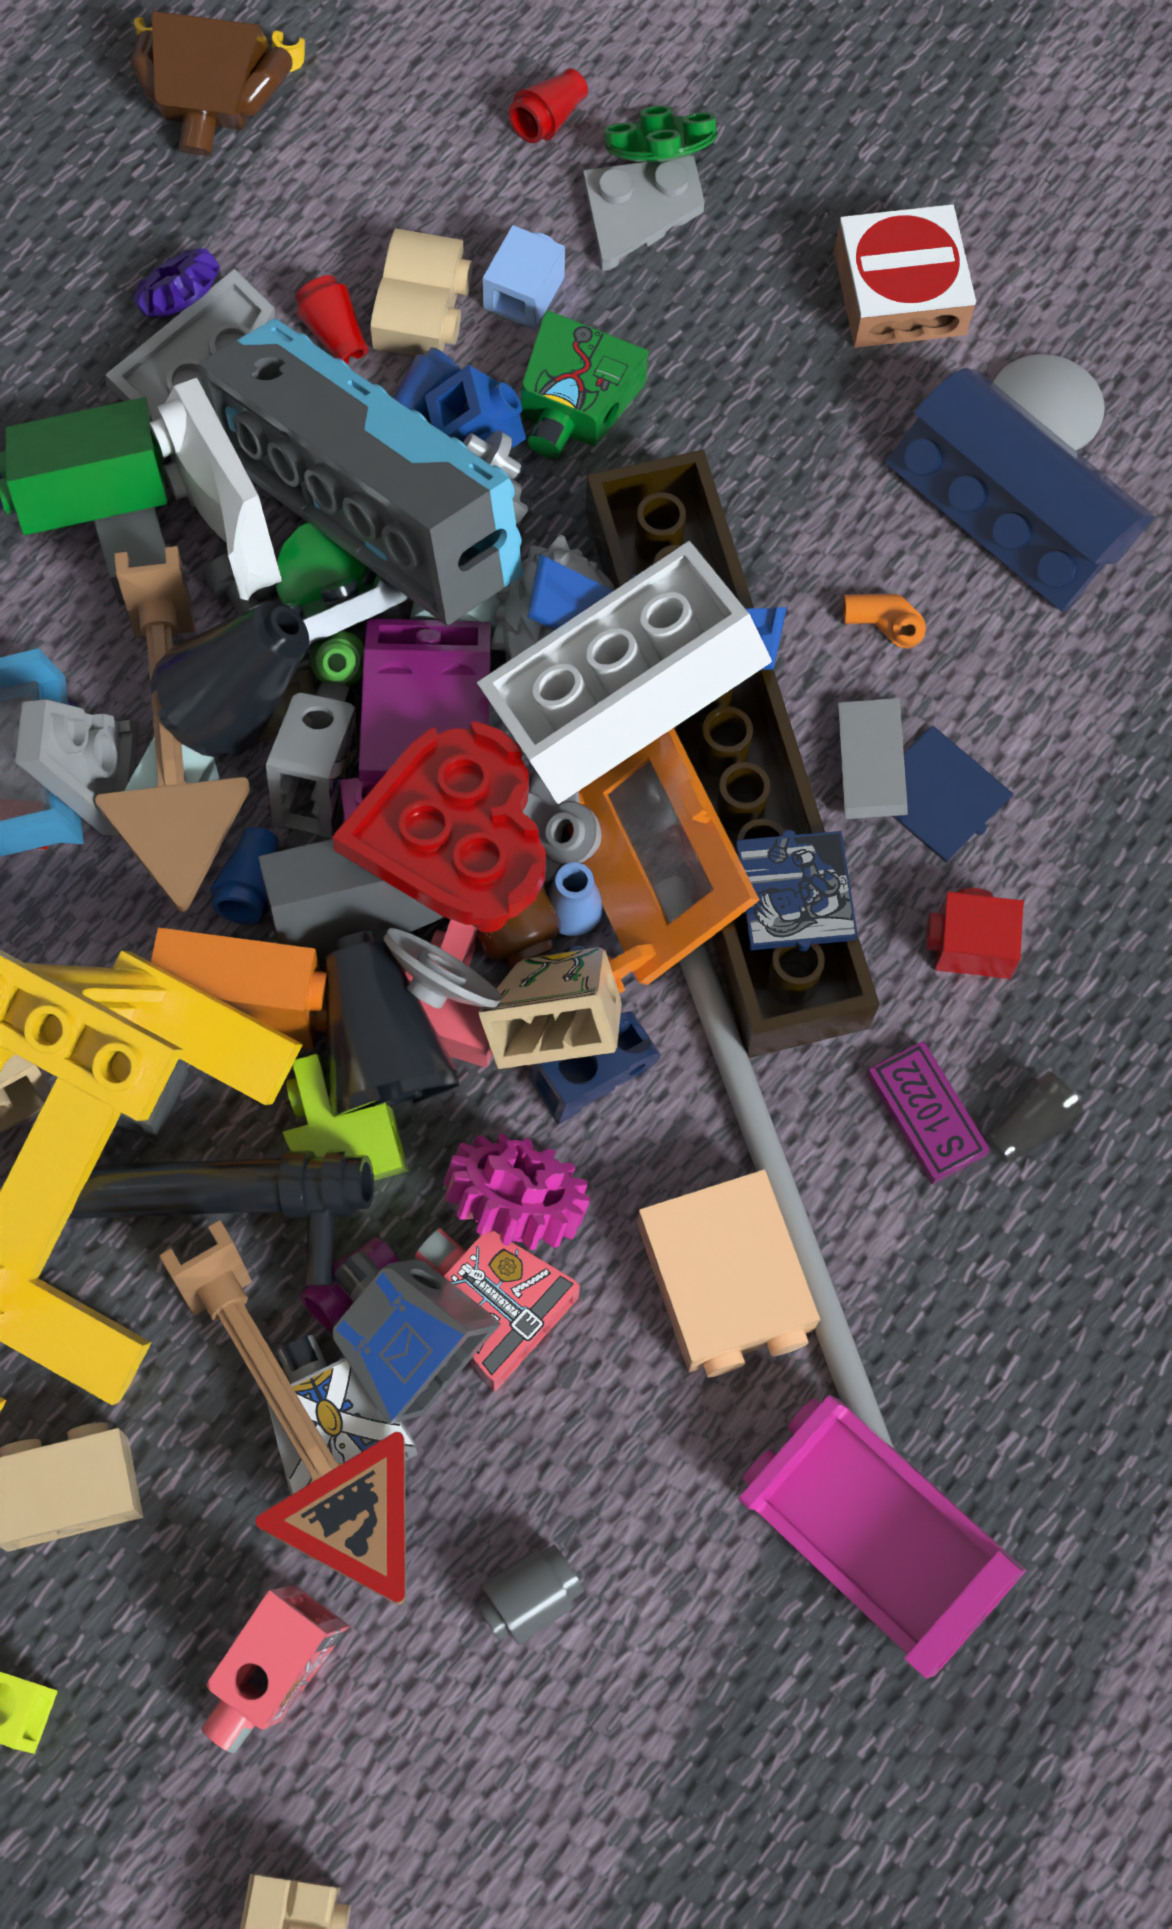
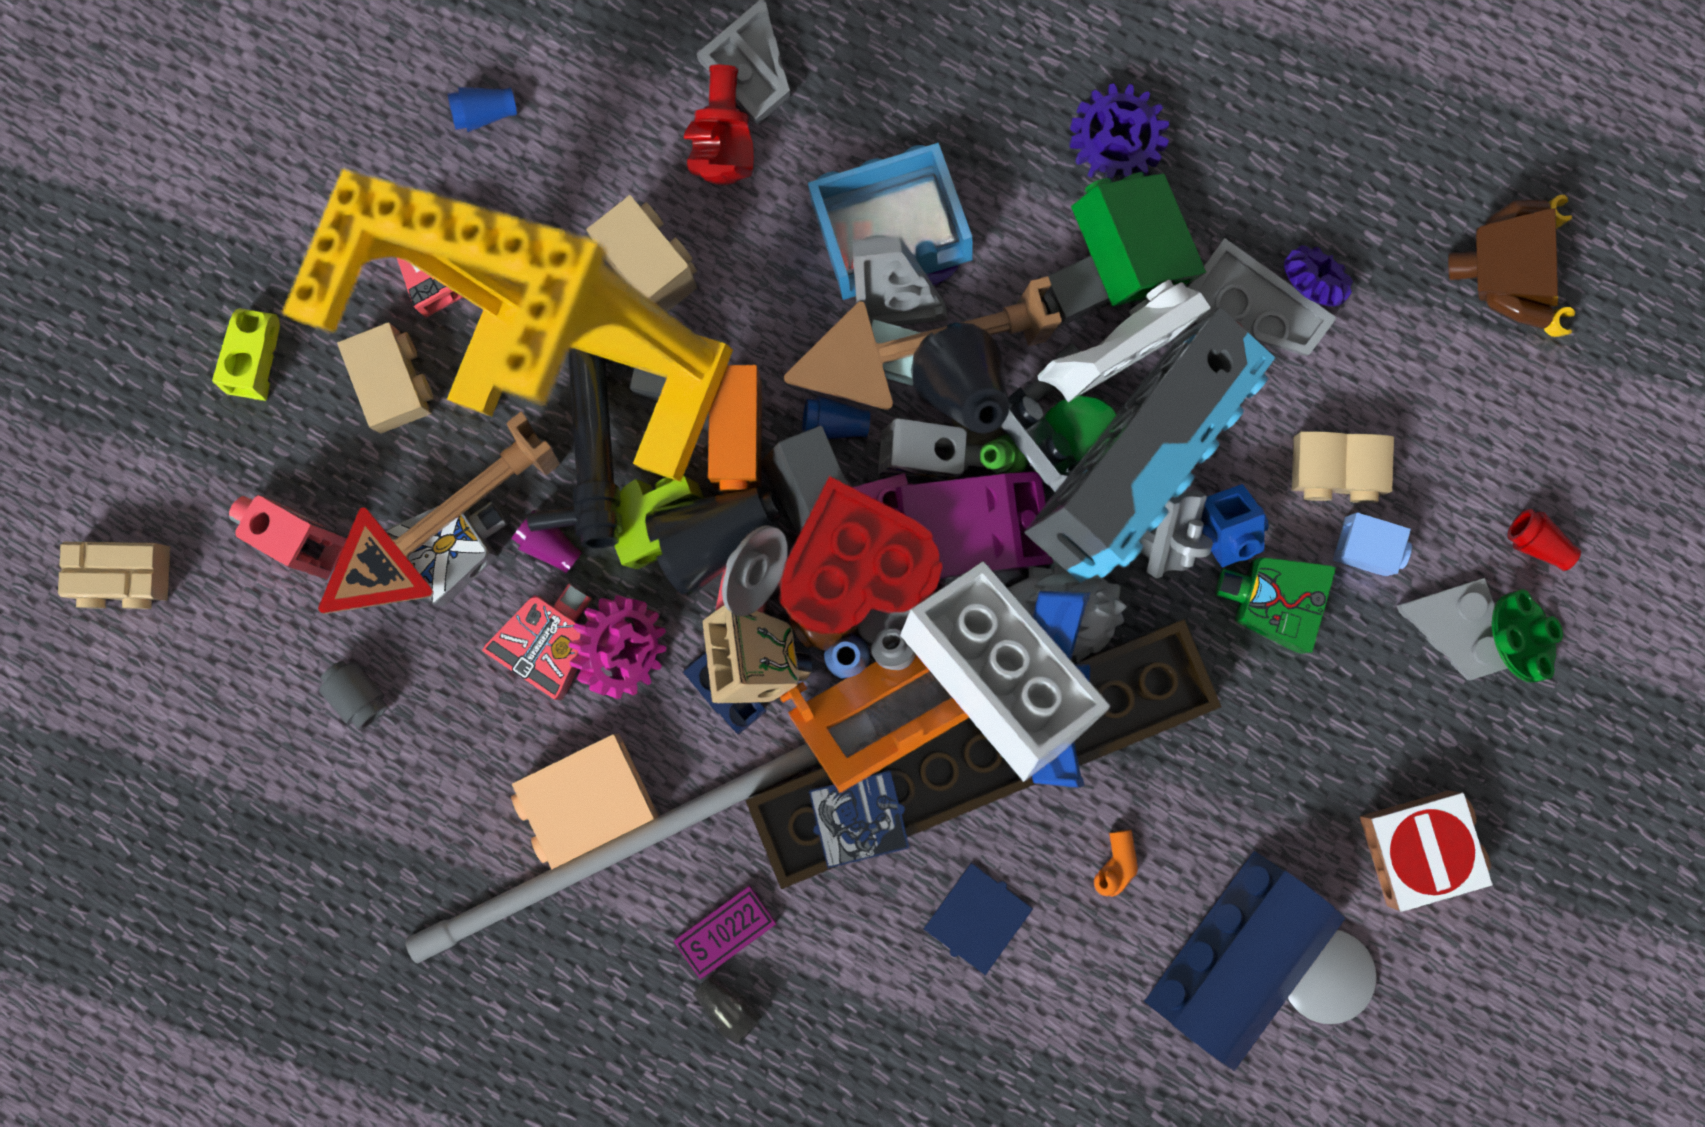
camera: 90 degrees right, 15 degrees up
(330, 316) = (1309, 400): red cone -> none
(406, 1332) = (504, 585): dark grey torso -> none
(422, 377) = (1261, 481): blue cone -> none
(872, 758) = (995, 865): light grey tile -> none
(881, 1533) = (413, 929): dark pink panel -> none
(976, 933) = (862, 955): red brick -> none

